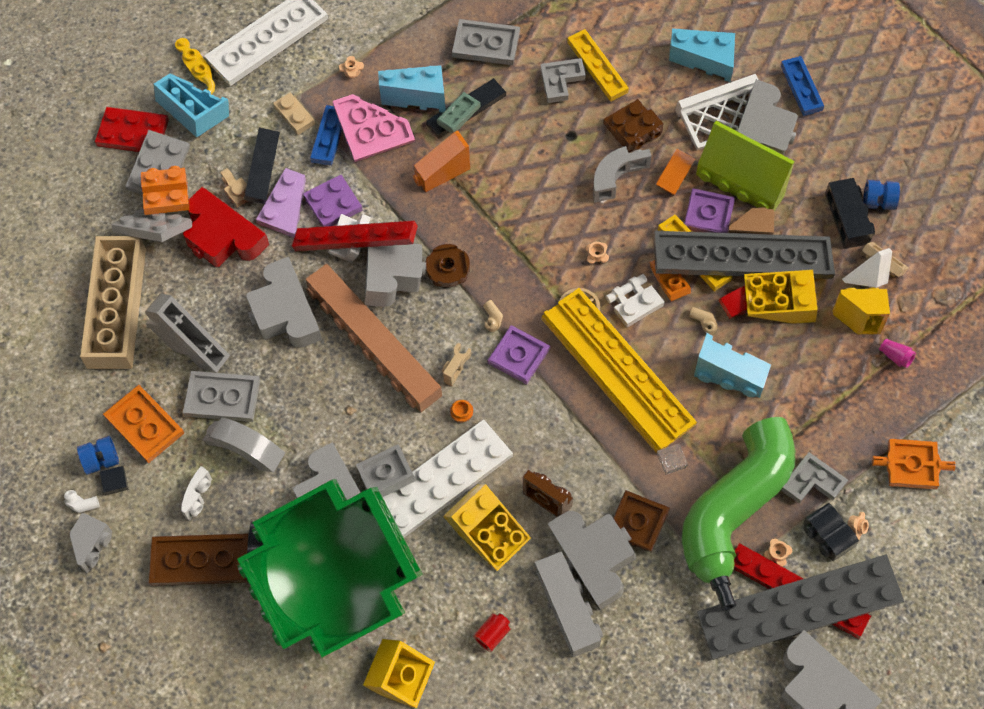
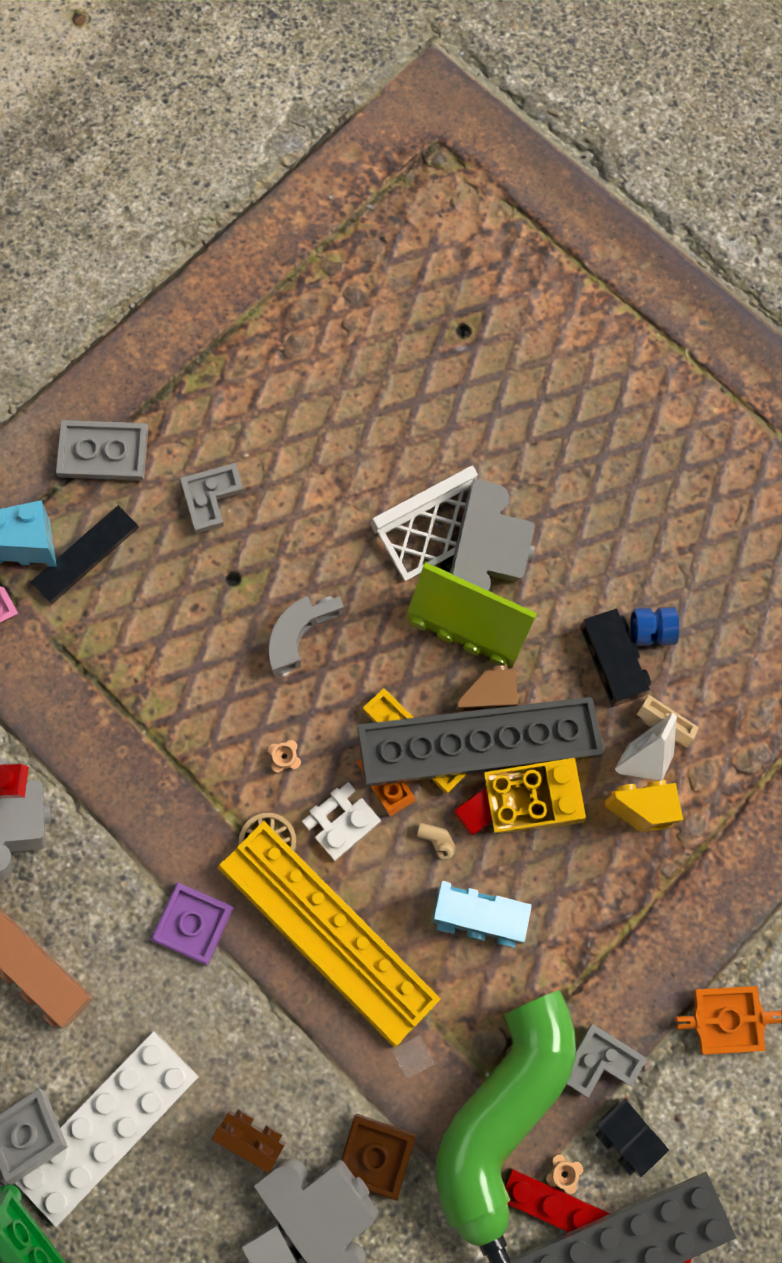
camera: 15 degrees left, 10 degrees up
(443, 162) = (57, 650): orange slope -> none
(447, 277) = (67, 792): reddish brown plate -> none
(454, 367) = (104, 960): tan plate -> none
(458, 112) = (73, 568): sand green plate -> none
(461, 411) = (122, 1021): orange plate -> none
(487, 526) = (172, 1194): yellow slope -> none
(495, 316) = (154, 874): tan arm -> none
(598, 65) = (259, 469): yellow plate -> none
(634, 125) = (316, 556): reddish brown plate -> none
(675, 172) = (378, 622): orange slope -> none
(704, 50) = (401, 434): medium azure wedge -> none
(709, 212) = (429, 676): medium lavender tile -> none
(802, 85) = (536, 471): blue plate -> none
(858, 524) = (665, 1122): light nougat plate -> none
(898, 353) = (695, 858): dark pink cone -> none

